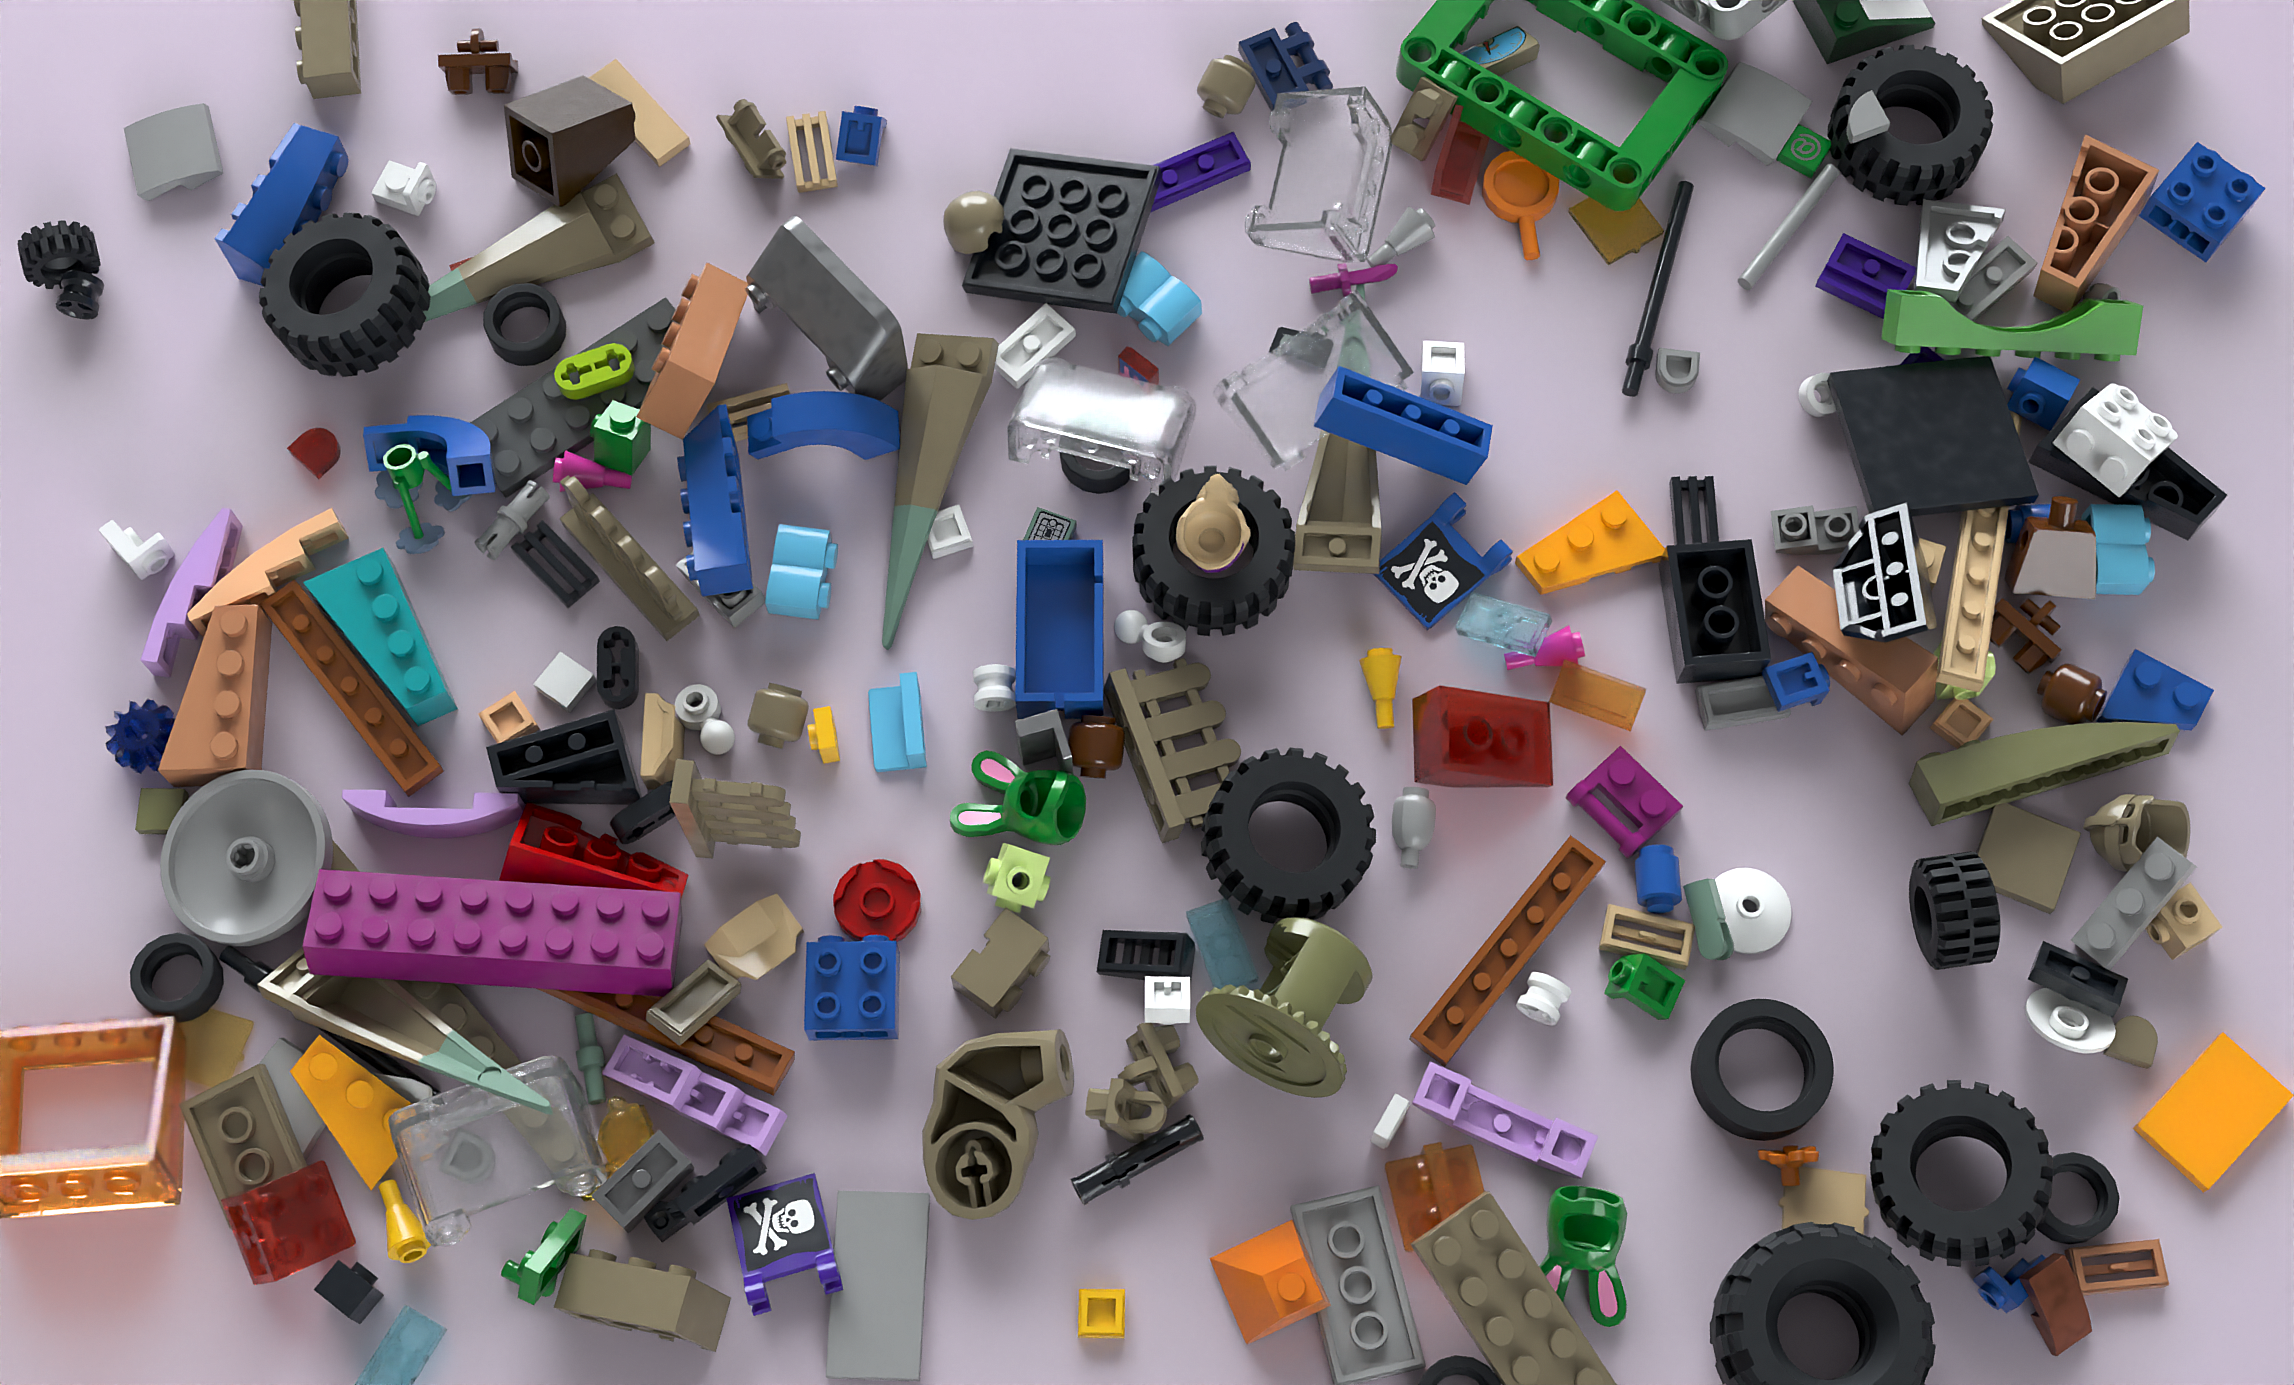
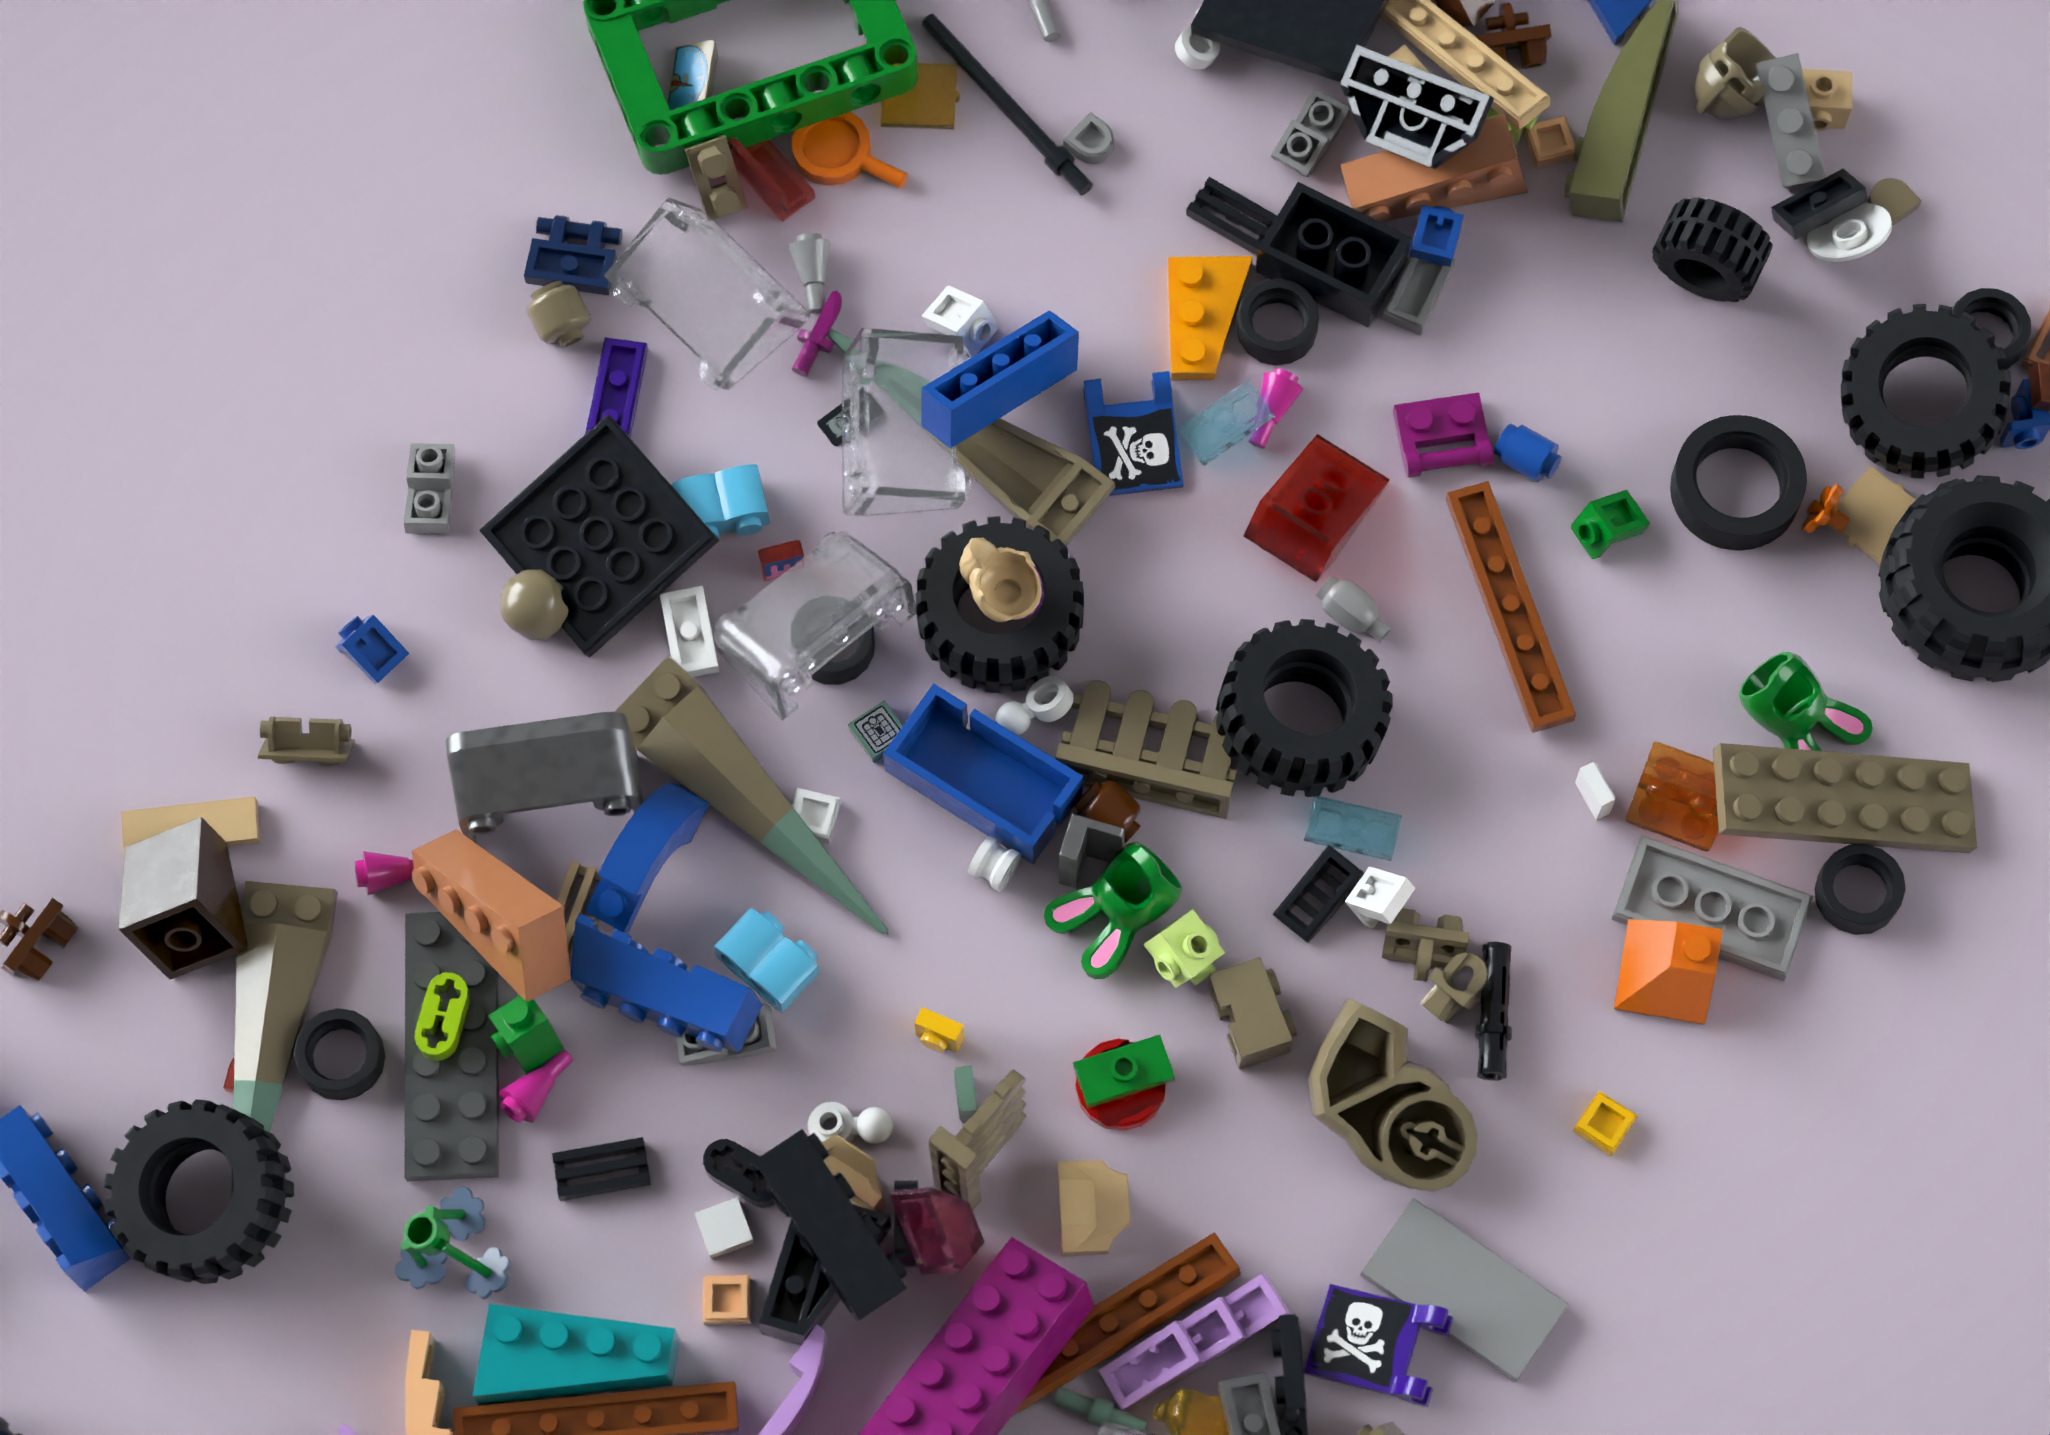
camera: 55 degrees left, 0 degrees up
(316, 450) = (326, 1319): clear red tile -> none
(405, 187) = (109, 1080): white bracket -> none
(452, 444) = (438, 1177): blue arch -> none
(512, 520) = (531, 1180): light grey pin -> none
(554, 850) = (898, 1331): red wedge -> none
(586, 741) = (830, 1224): none -> black wedge
(626, 562) = (648, 1103): dark tan fence -> none
(650, 835) = (938, 1229): none -> clear pink slope
(684, 255) = (382, 871): none -> dark pink cone
(693, 1002) = (1114, 1289): dark tan tile -> none
(778, 715) = (892, 1060): dark tan head -> none
(794, 781) = (965, 1092): none -> sand green tile
(807, 124) = (318, 685): tan tile -> none
(852, 989) = (1192, 1147): blue brick -> none
(883, 895) = (1123, 1071): none -> green plate
(897, 725) = (970, 965): medium azure panel -> none
(1024, 94) = (429, 488): none -> light grey slope
(1279, 1027) = (1460, 799): olive piece -> none
(1381, 674) = (1203, 547): yellow cone -> none
(1503, 1124) = (1656, 704): lavender slope -> none
(1543, 998) = (1570, 605): white wheel -> none
(1597, 695) = (1339, 392): clear orange tile -> none
(1637, 581) = (1277, 292): none -> black tyre
(1659, 922) = (1542, 518): tan tile -> none
(1709, 919) = (1588, 437): sand green bar -> none
(1758, 930) = (1594, 423): white dish -> none
(2027, 855) = (1691, 166): dark tan tile -> none
(2071, 694) = (1586, 45): reddish brown head -> none
(2213, 1112) = (1984, 185): light orange tile -> none

